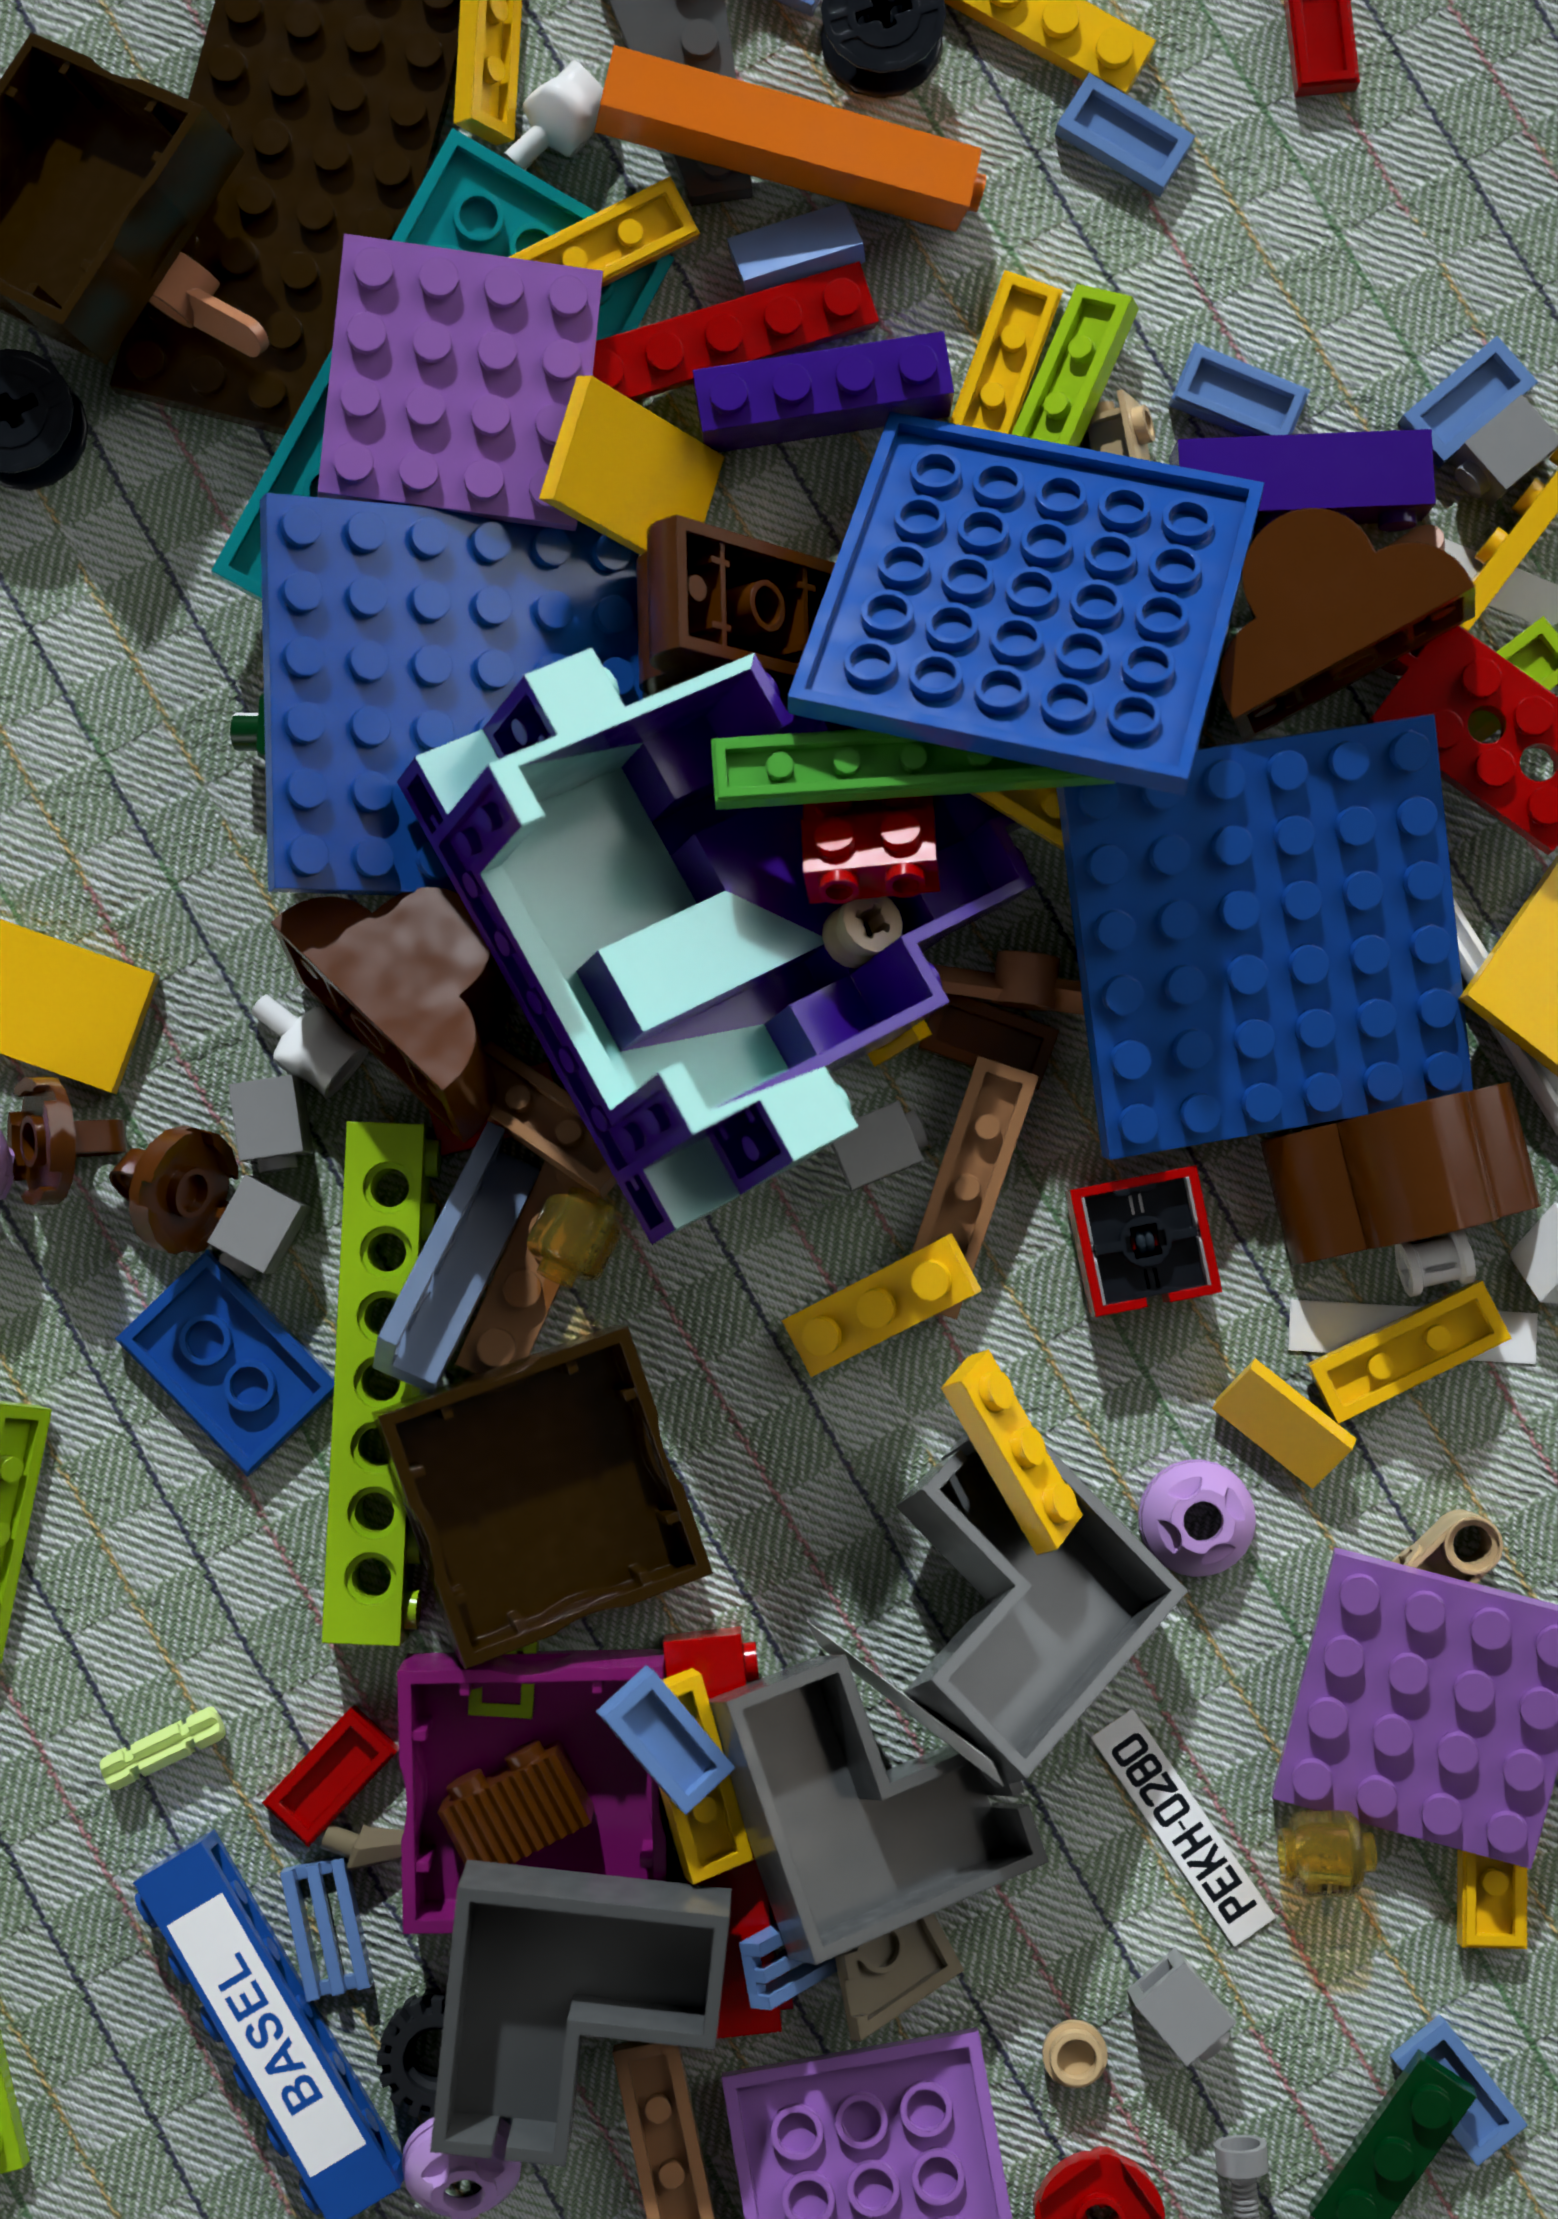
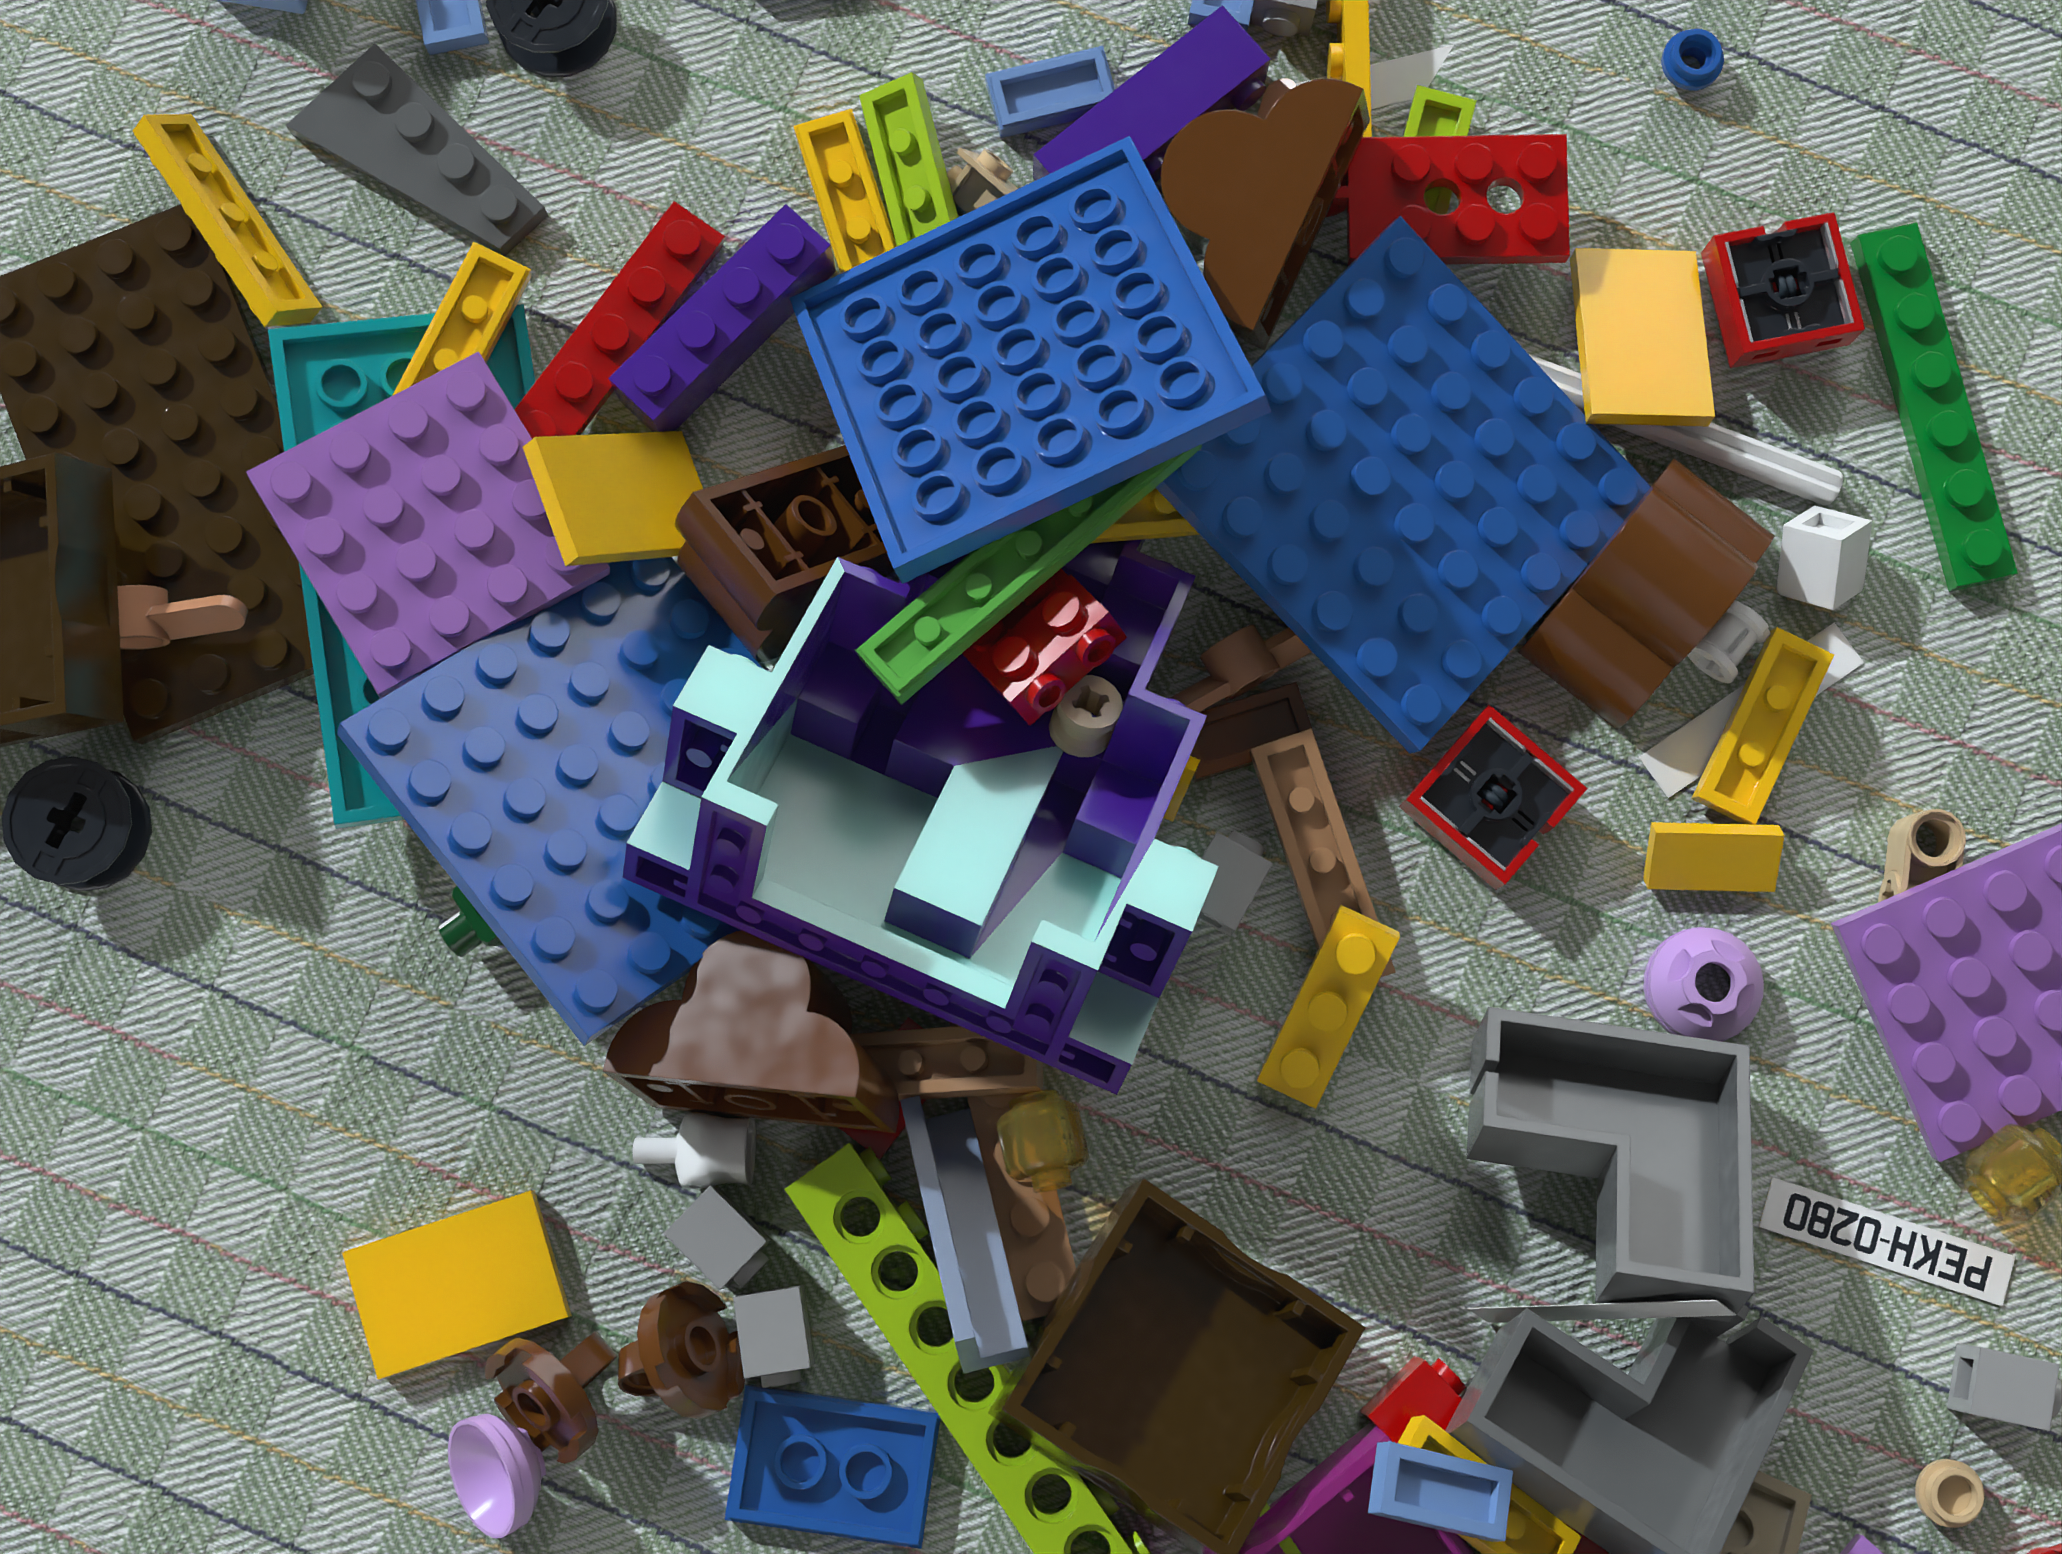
camera: 40 degrees left, 5 degrees down
(560, 116) = (347, 258): white piece -> none
(789, 139) = (546, 146): orange brick -> none
(796, 248) = (615, 228): medium blue tile -> none
(1012, 1451) = (1529, 1040): yellow plate -> none

